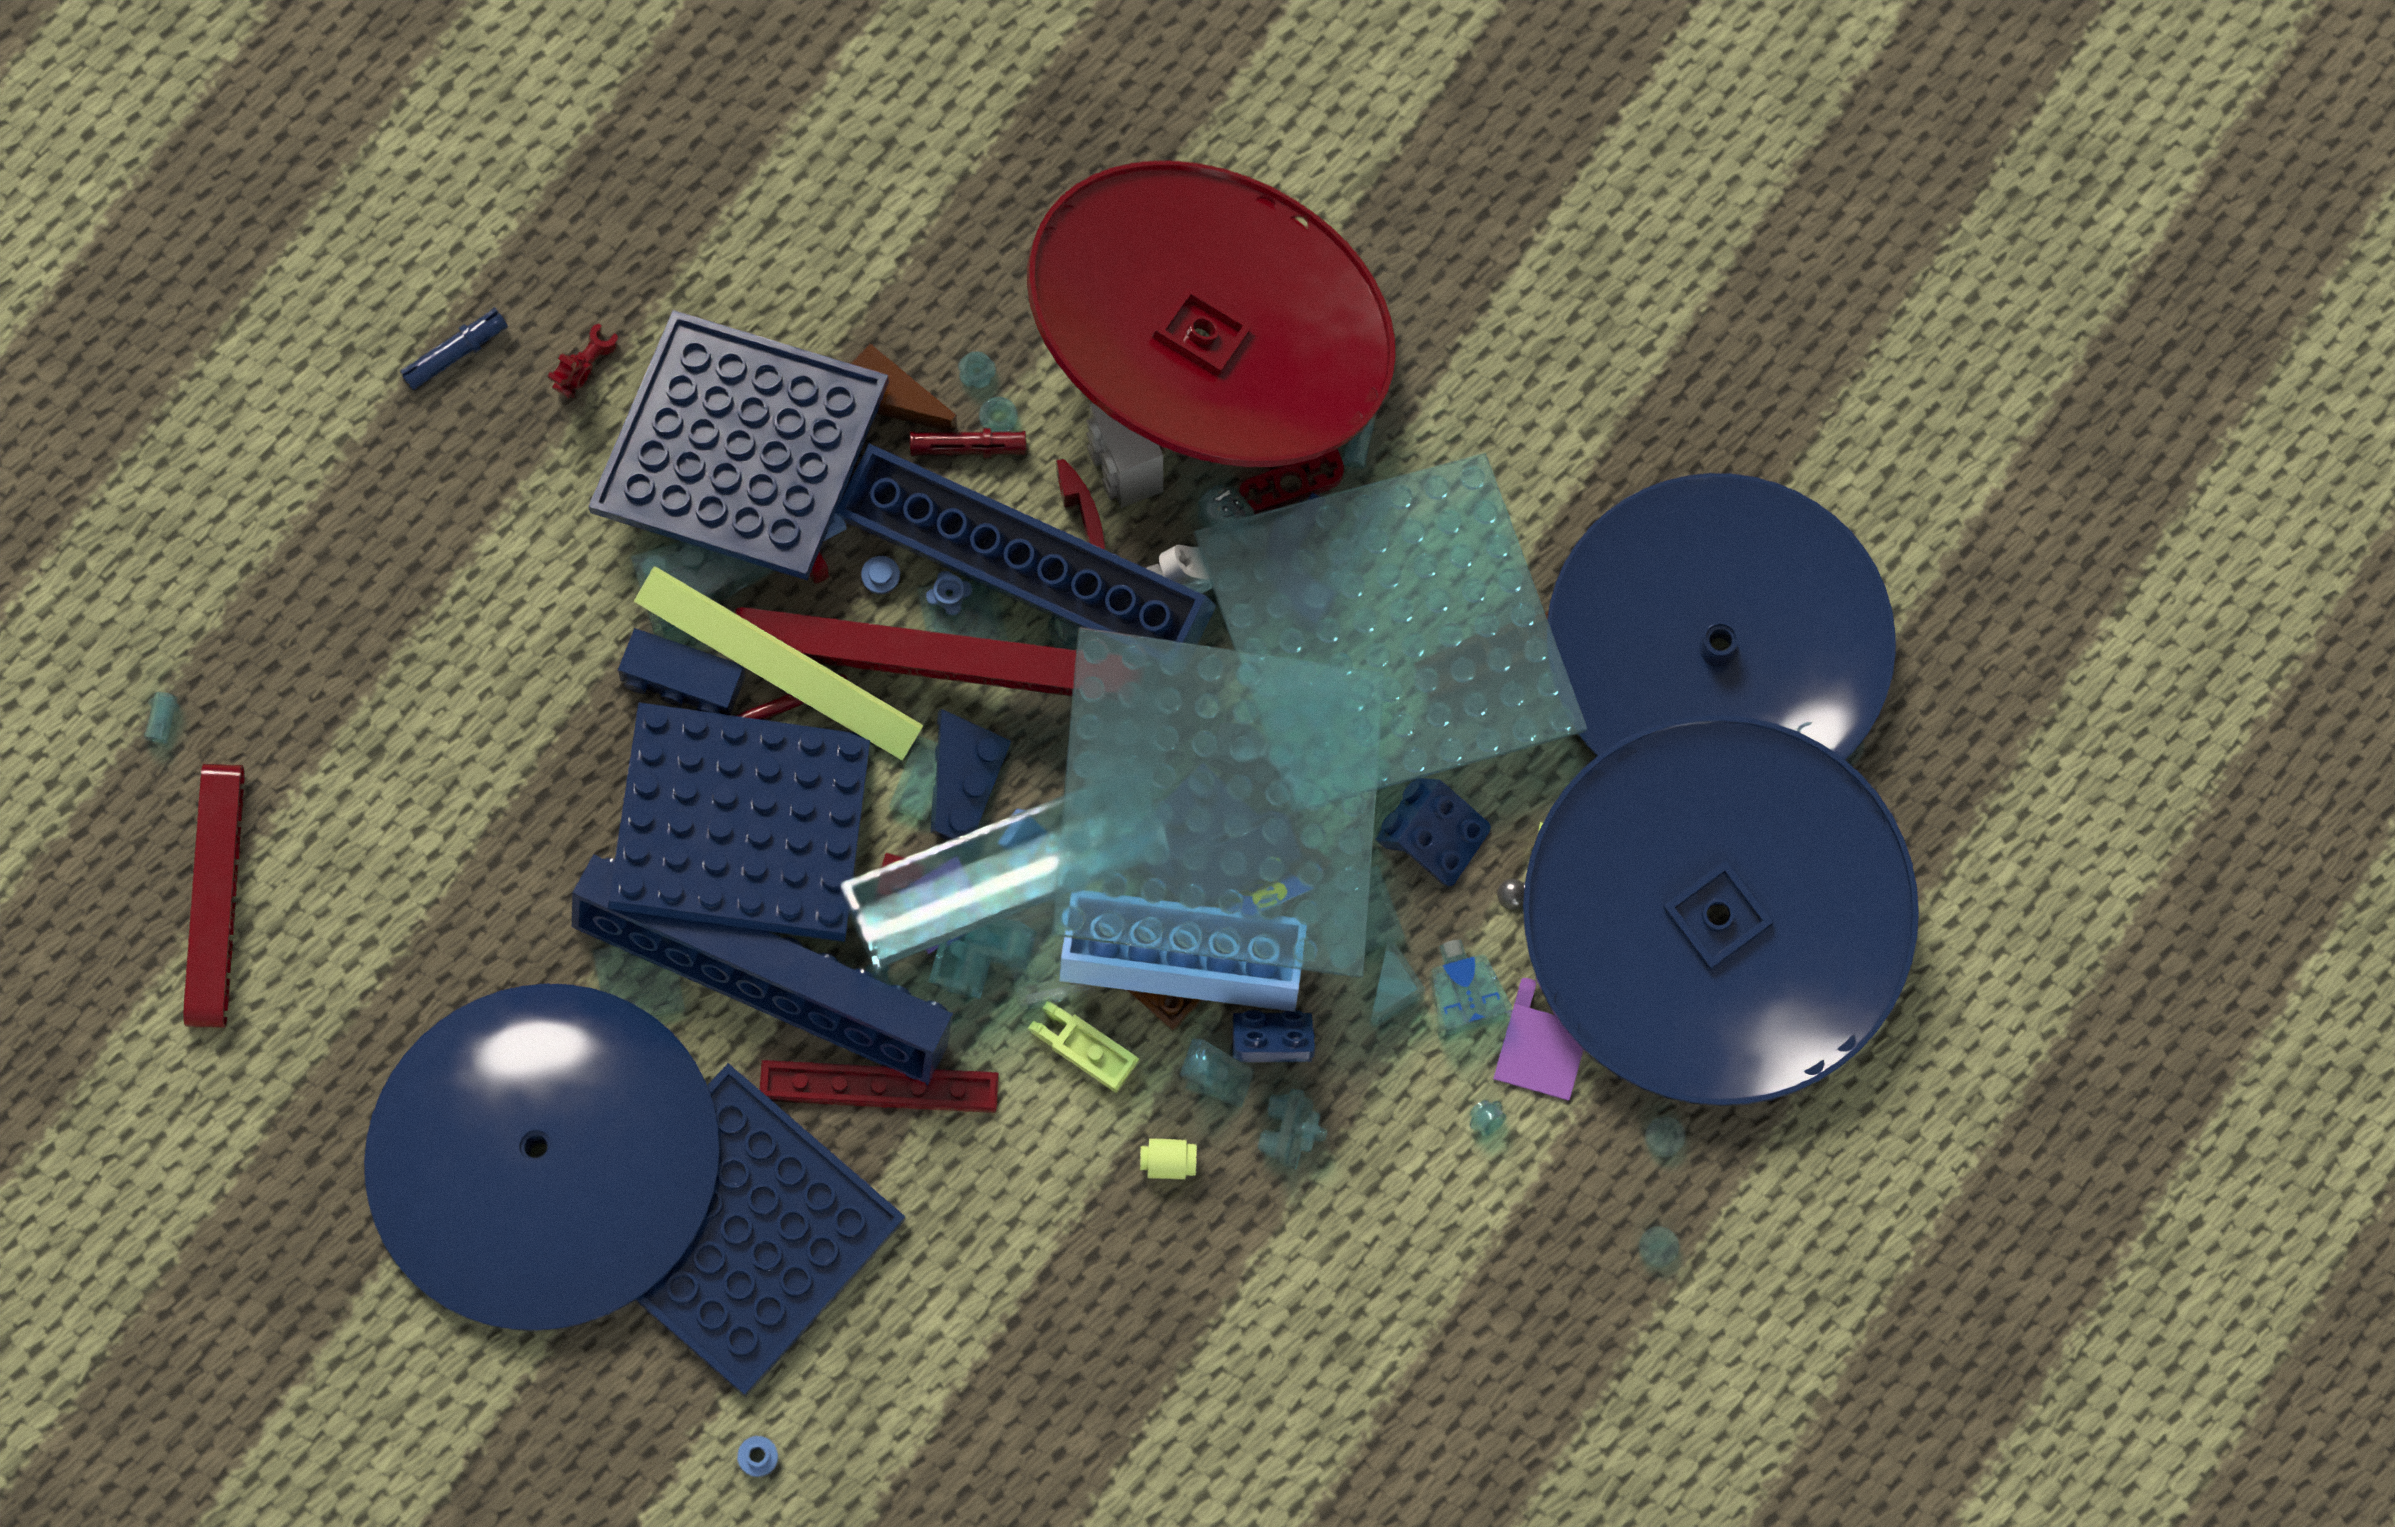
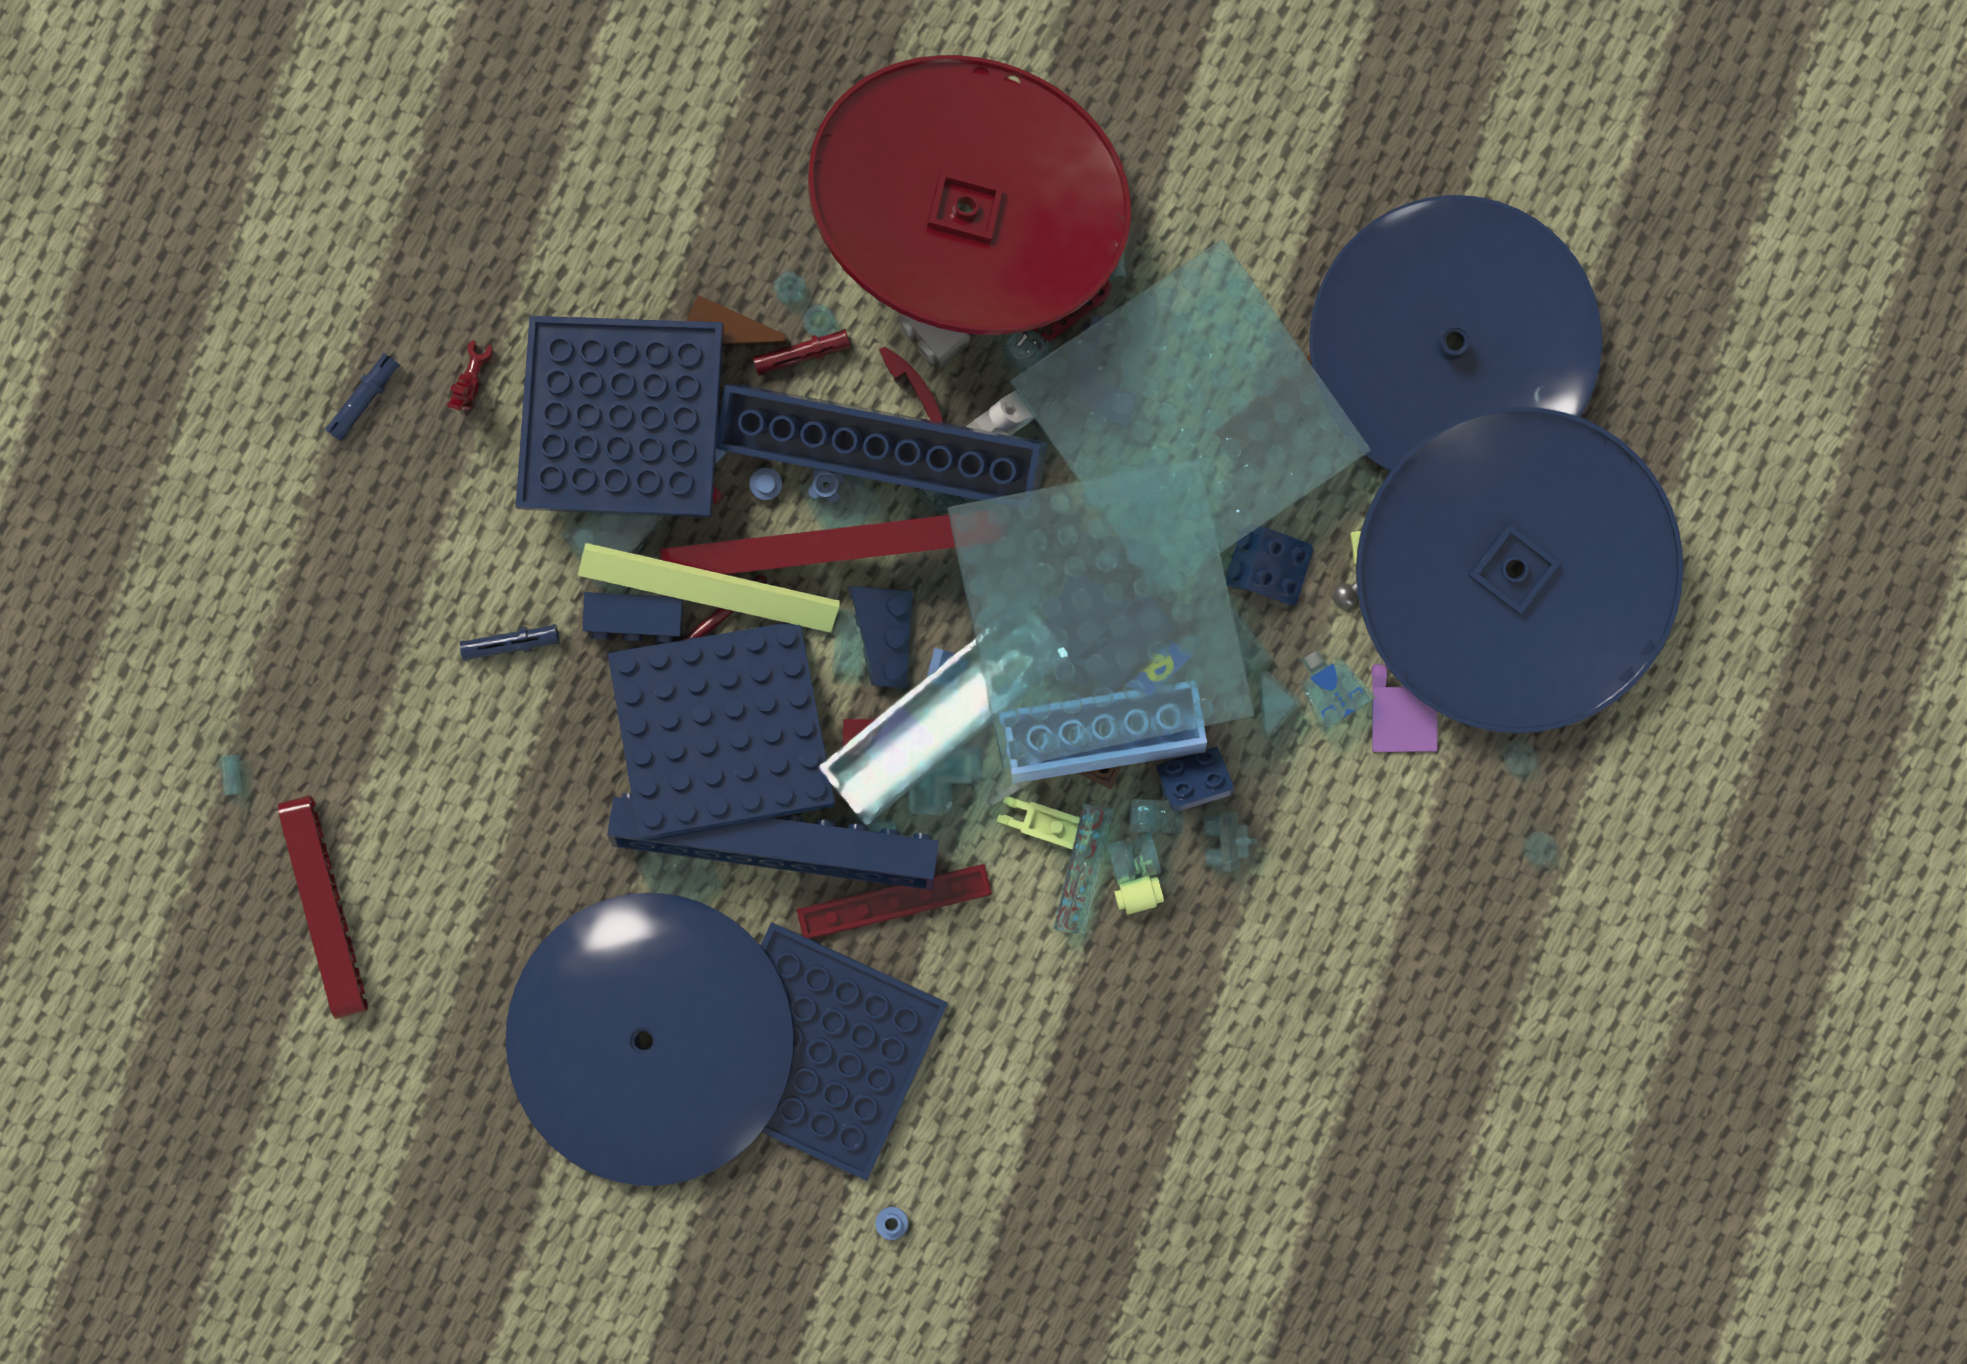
camera: 20 degrees left, 15 degrees up
(532, 664) = (547, 636): none -> dark blue pin
(1112, 1109) = (1083, 869): none -> clear light blue tile
(1175, 1113) = (1133, 858): none -> clear light blue wheel
(1487, 1117) = (1377, 785): clear light blue plate -> none

